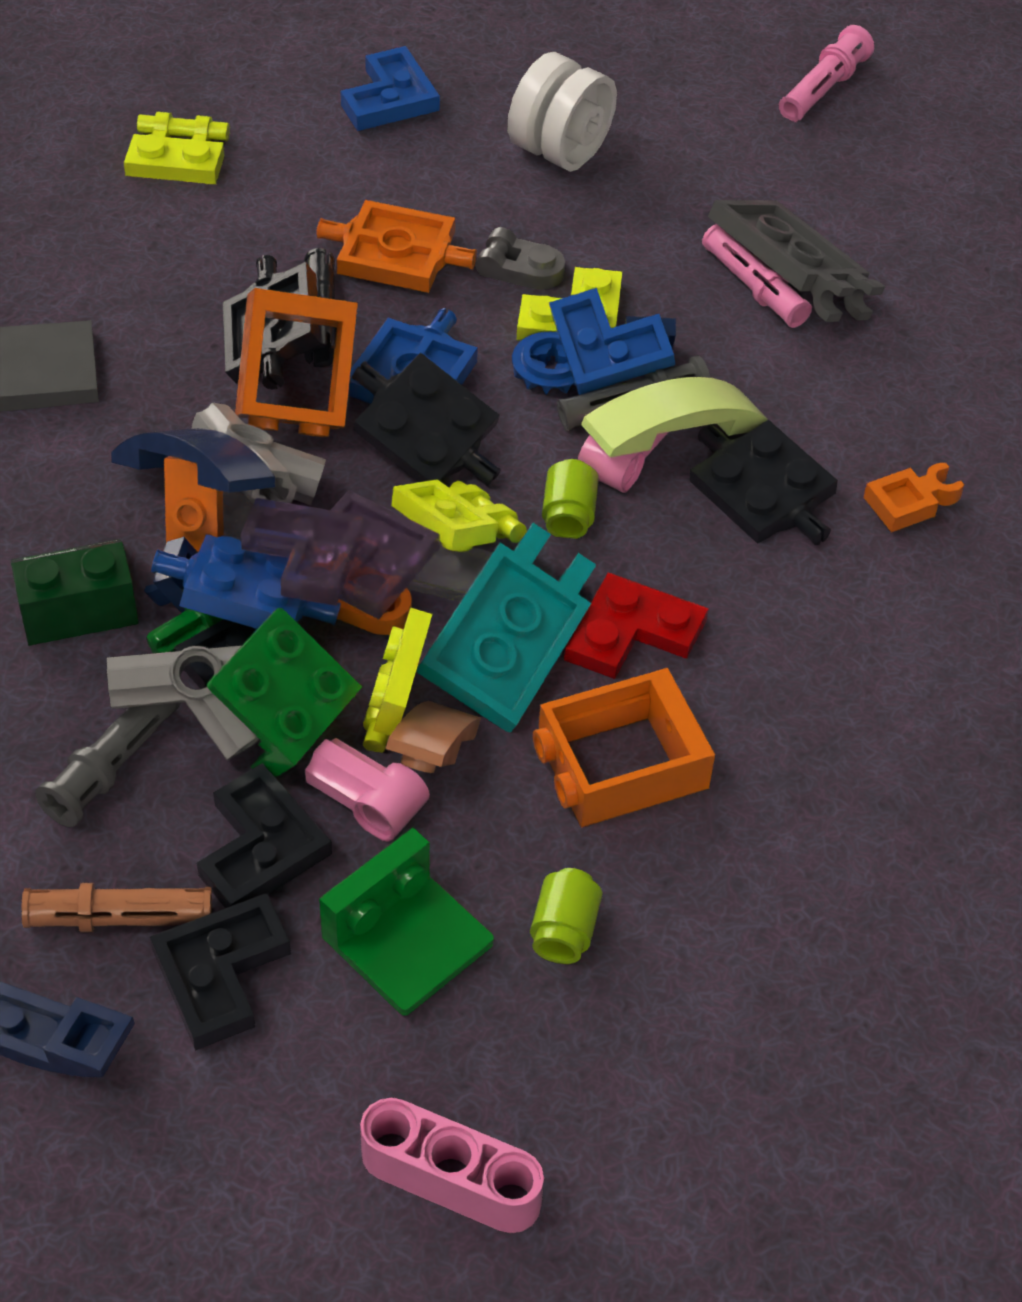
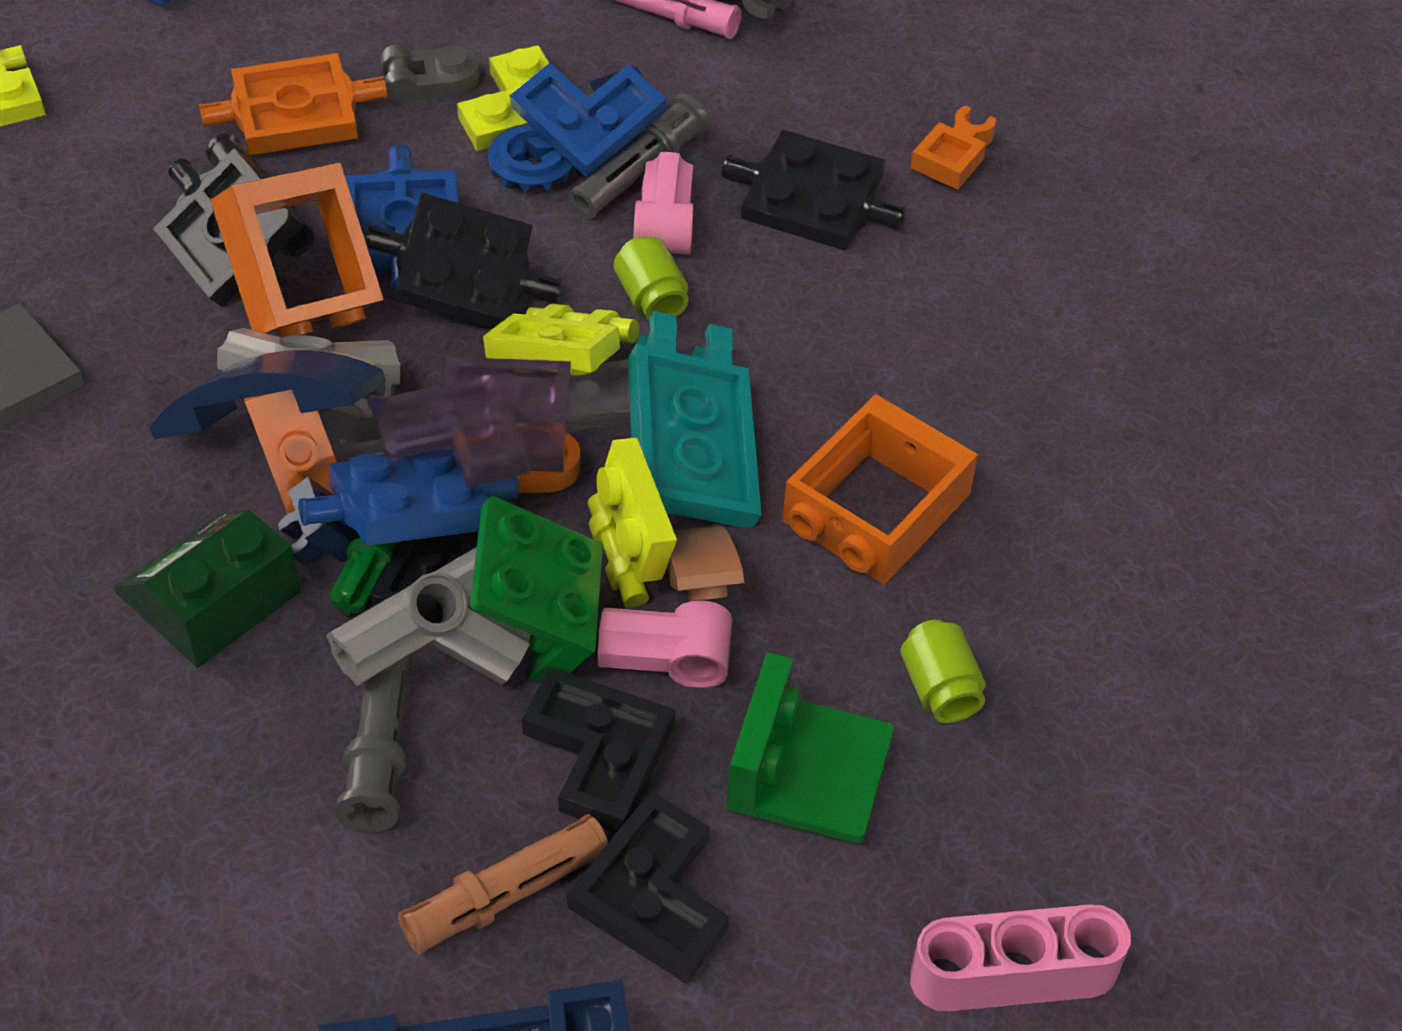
camera: 30 degrees left, 0 degrees up
(632, 613) = (789, 363): red plate -> none
(636, 418) = (678, 169): yellowish green slope -> none

